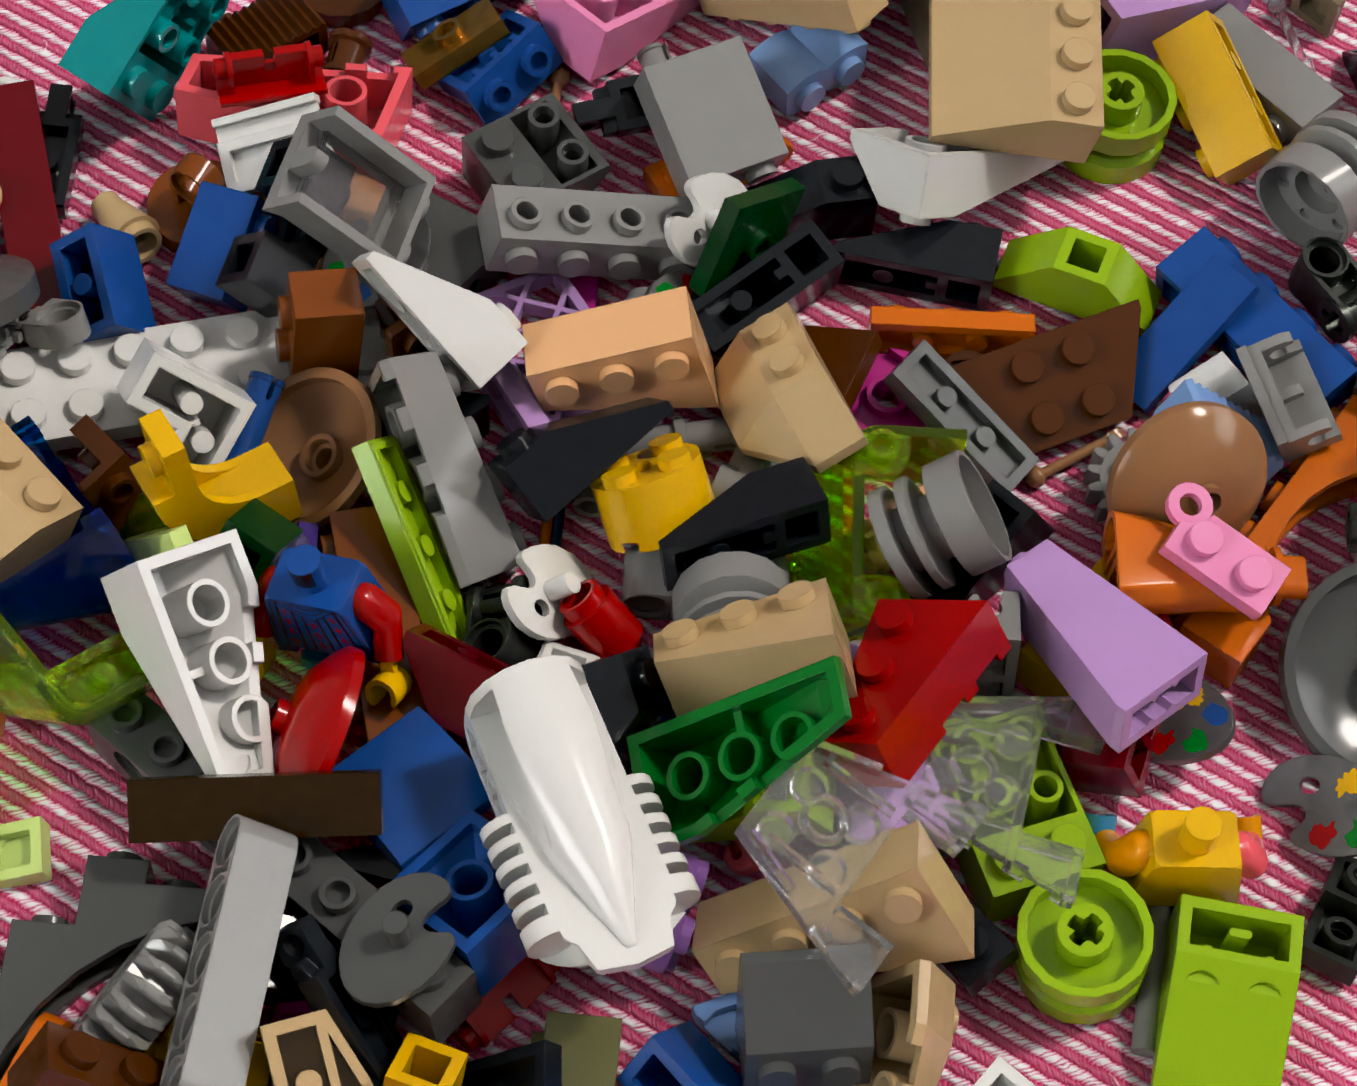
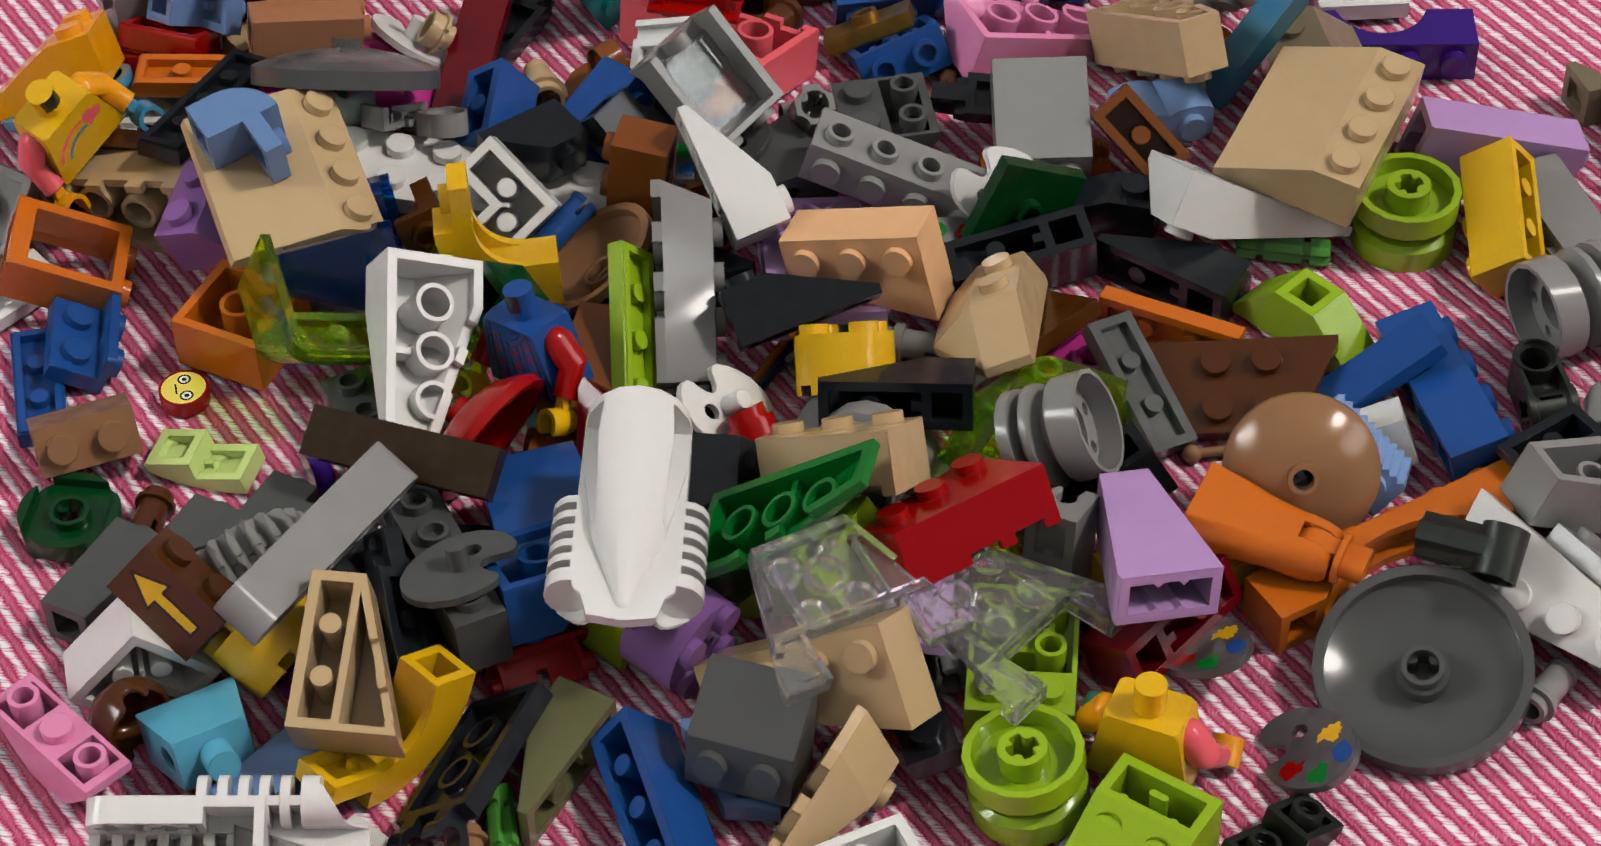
camera: 30 degrees right, 15 degrees down
(115, 821) = (318, 473): none -> dark purple tile
(186, 316) = (543, 140): none -> black slope
(458, 175) = (807, 107): none -> light grey piece
(816, 104) = (1135, 129): none -> dark orange brick
(1039, 188) = (1286, 250): none -> bright green axle
(1220, 554) = (1288, 516): bright pink hinge -> none
(1289, 396) = (1430, 436): light grey hinge -> none

